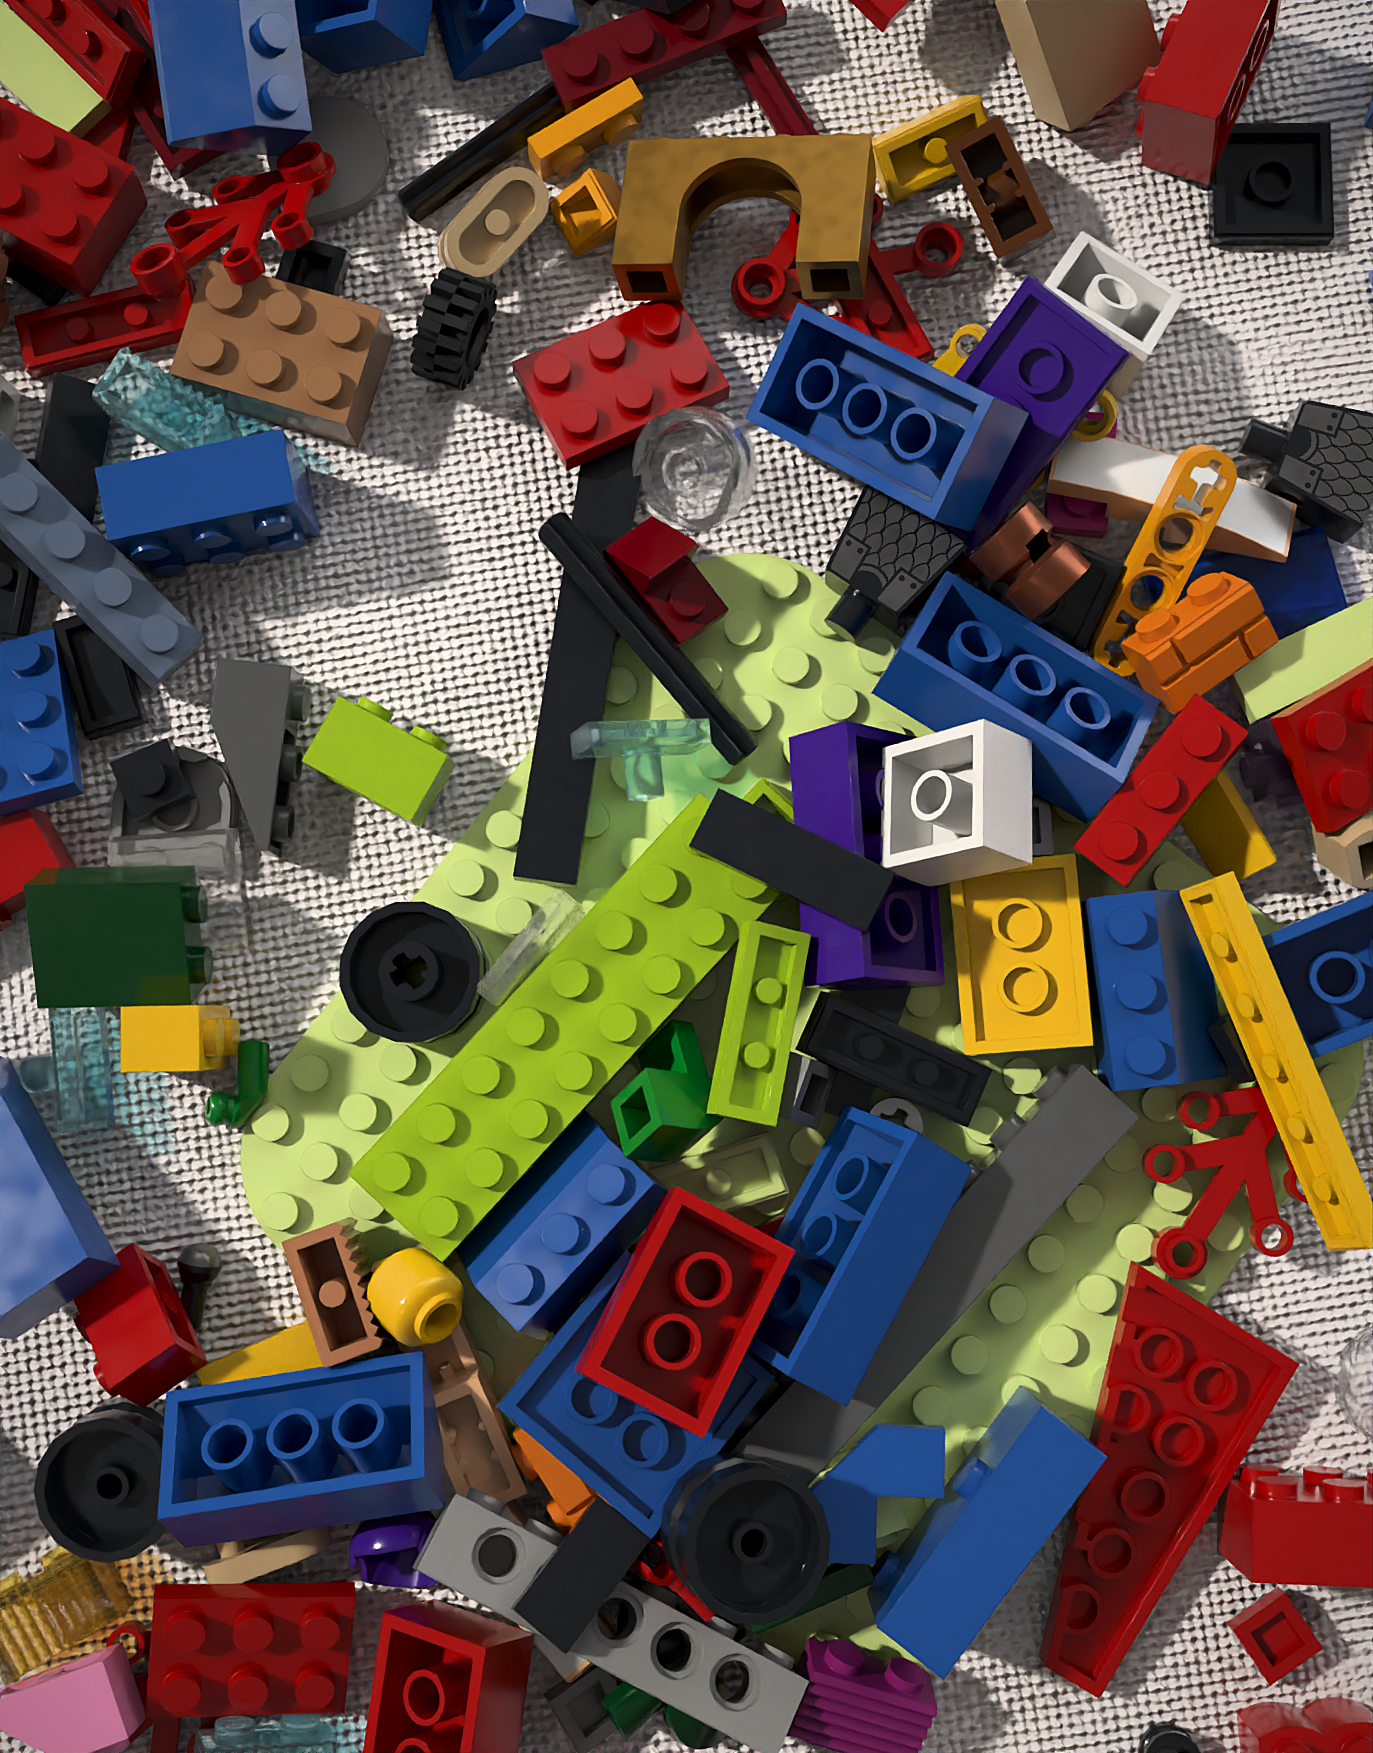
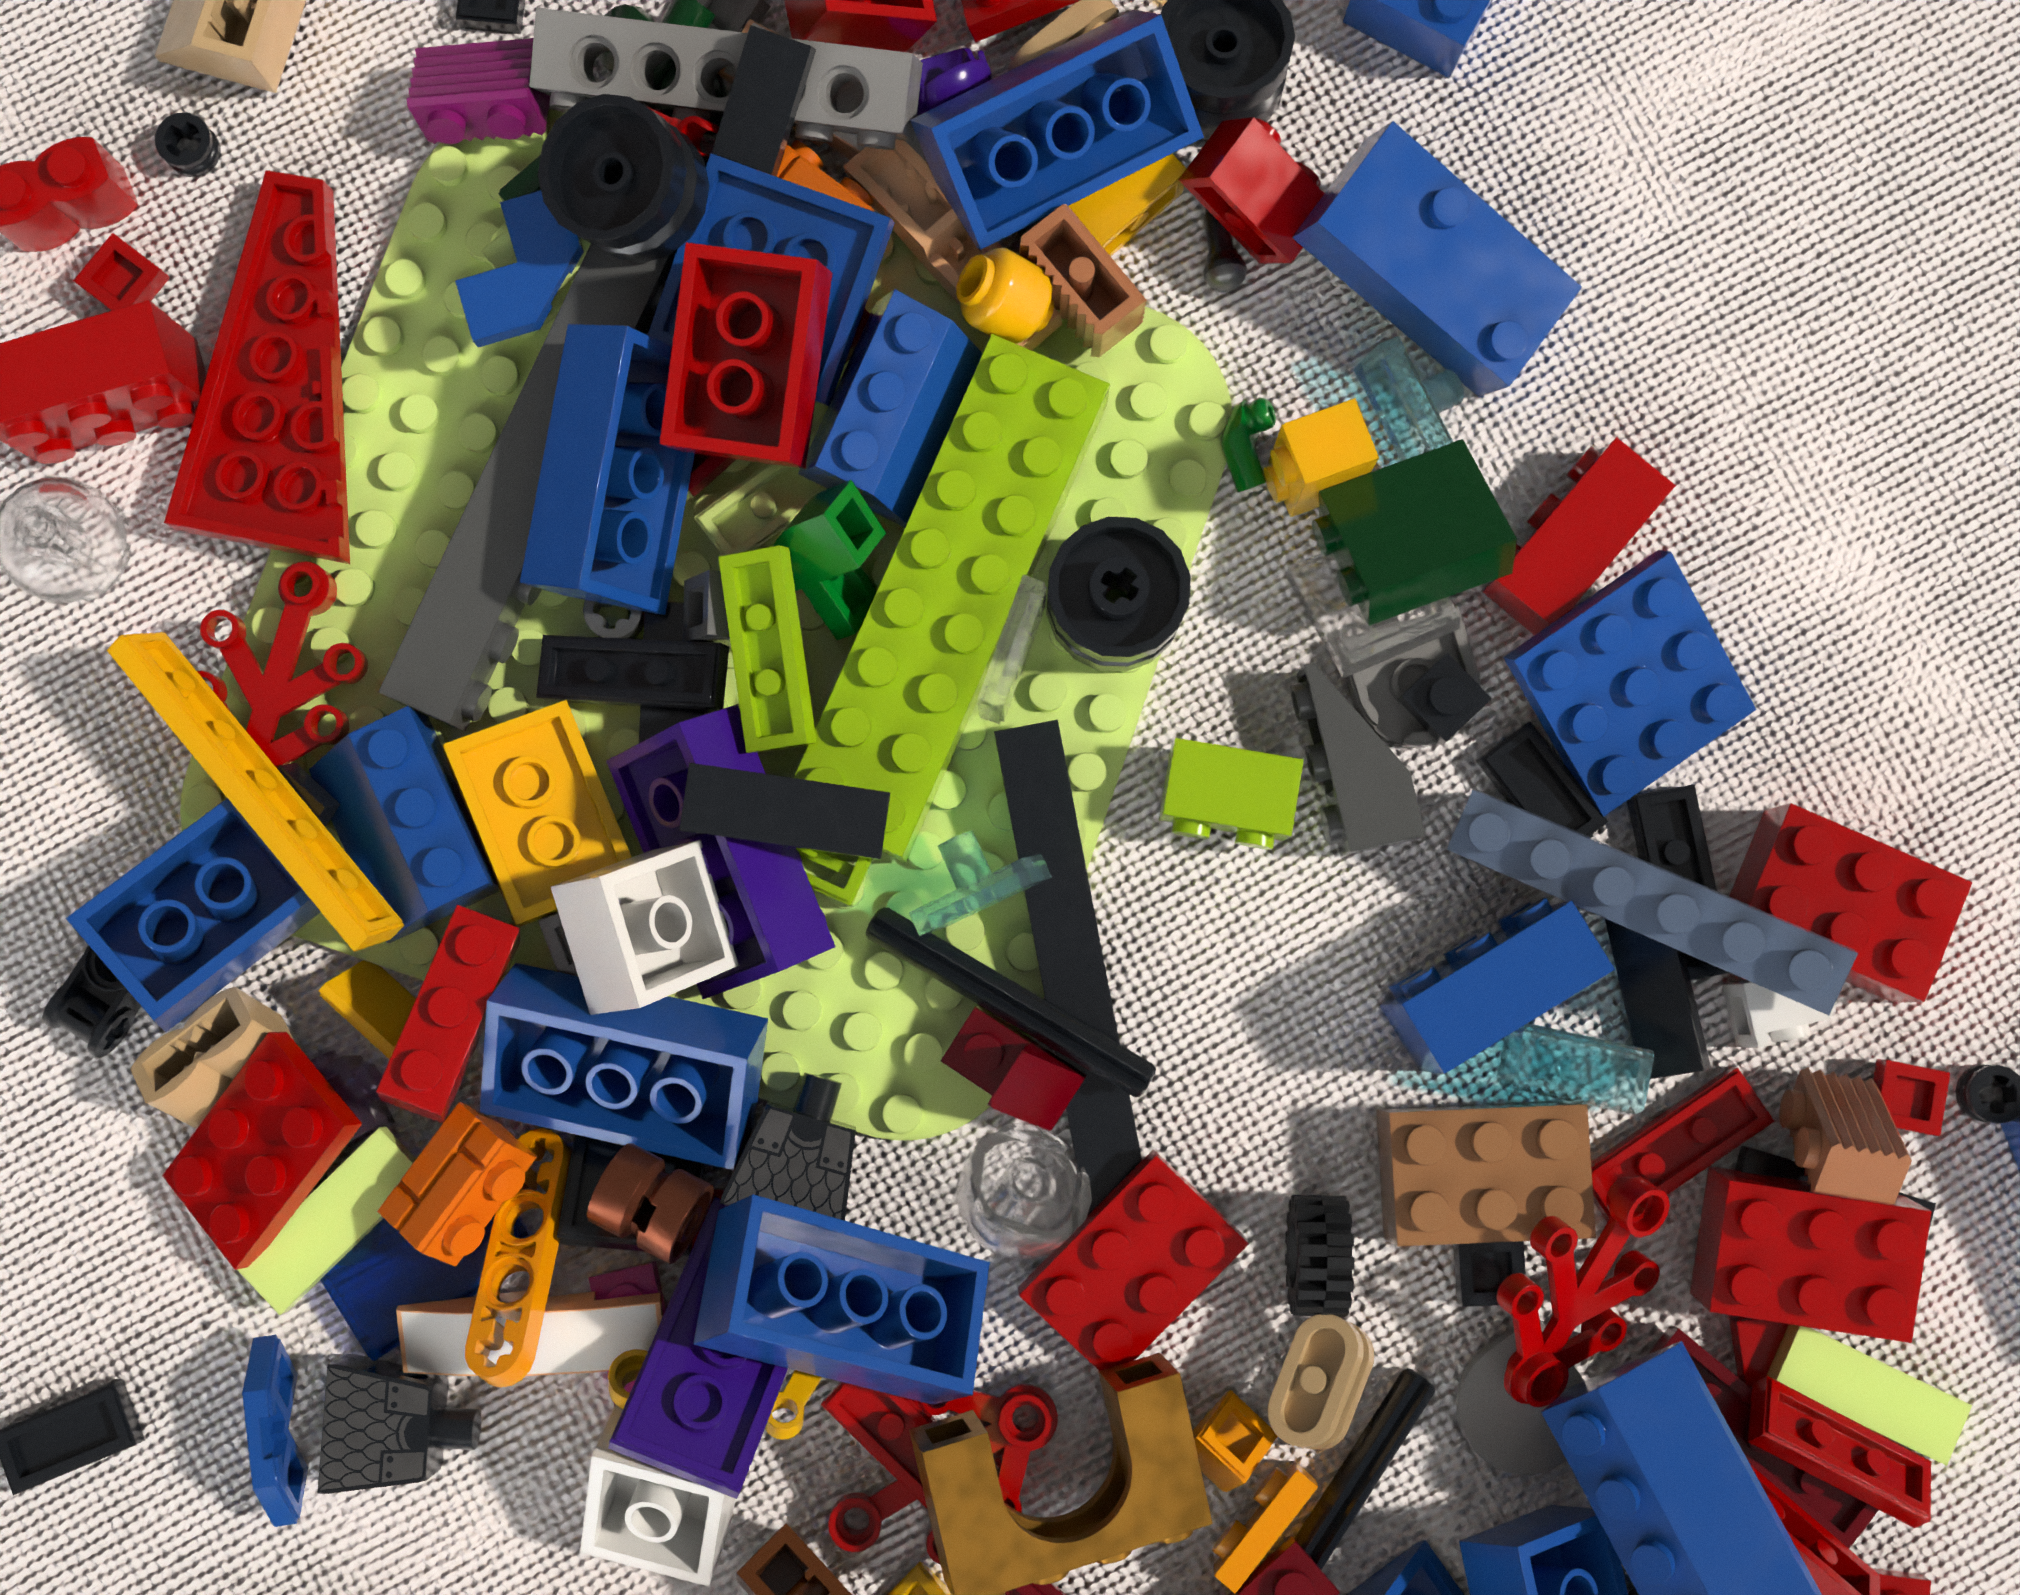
camera: 155 degrees right, 0 degrees up
(982, 1532) = (400, 284): blue brick -> none

